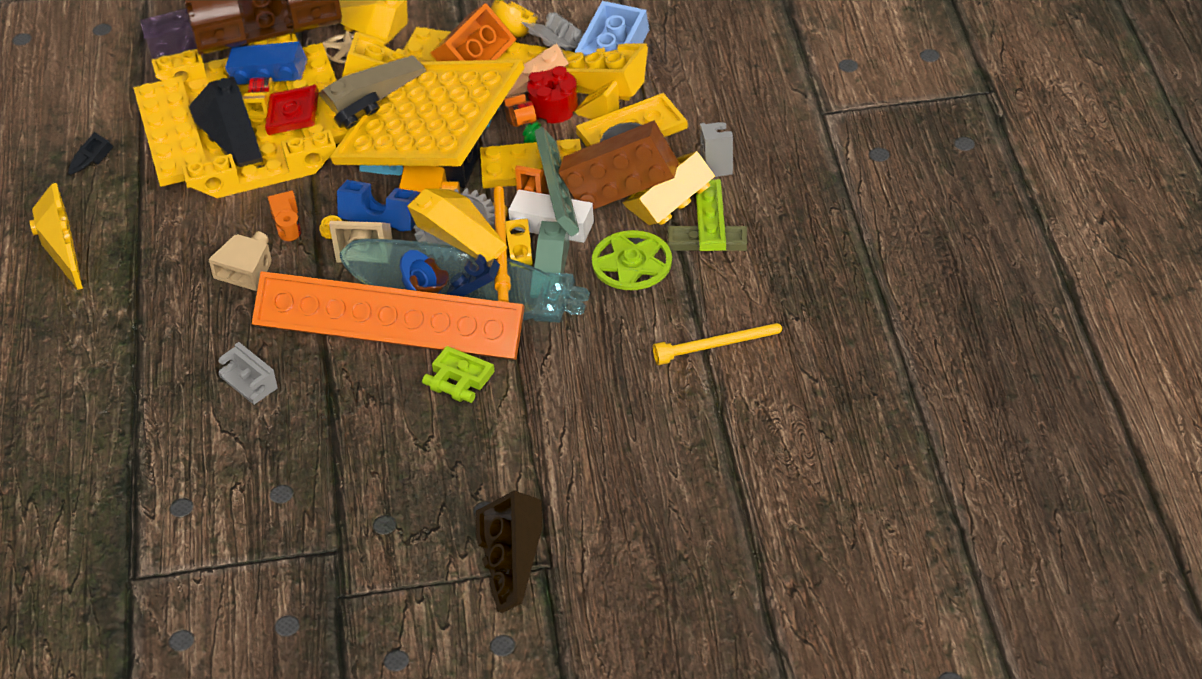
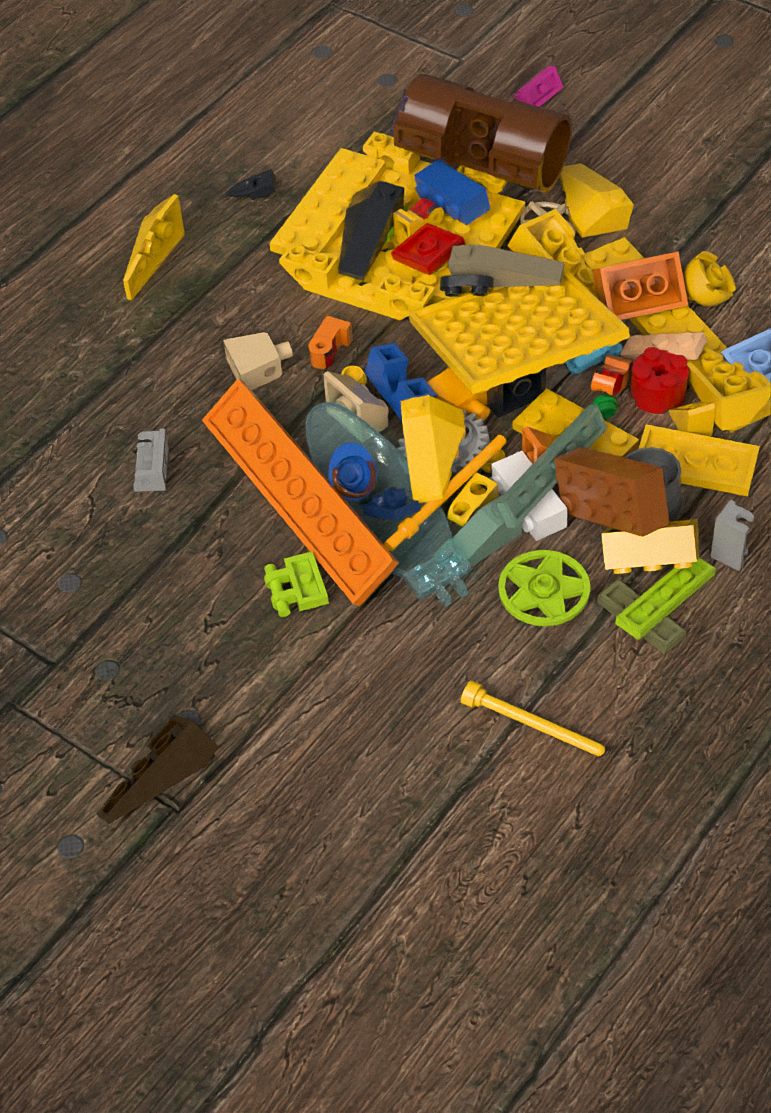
camera: 45 degrees right, 5 degrees up
(556, 31) = (727, 322): light grey hinge -> none

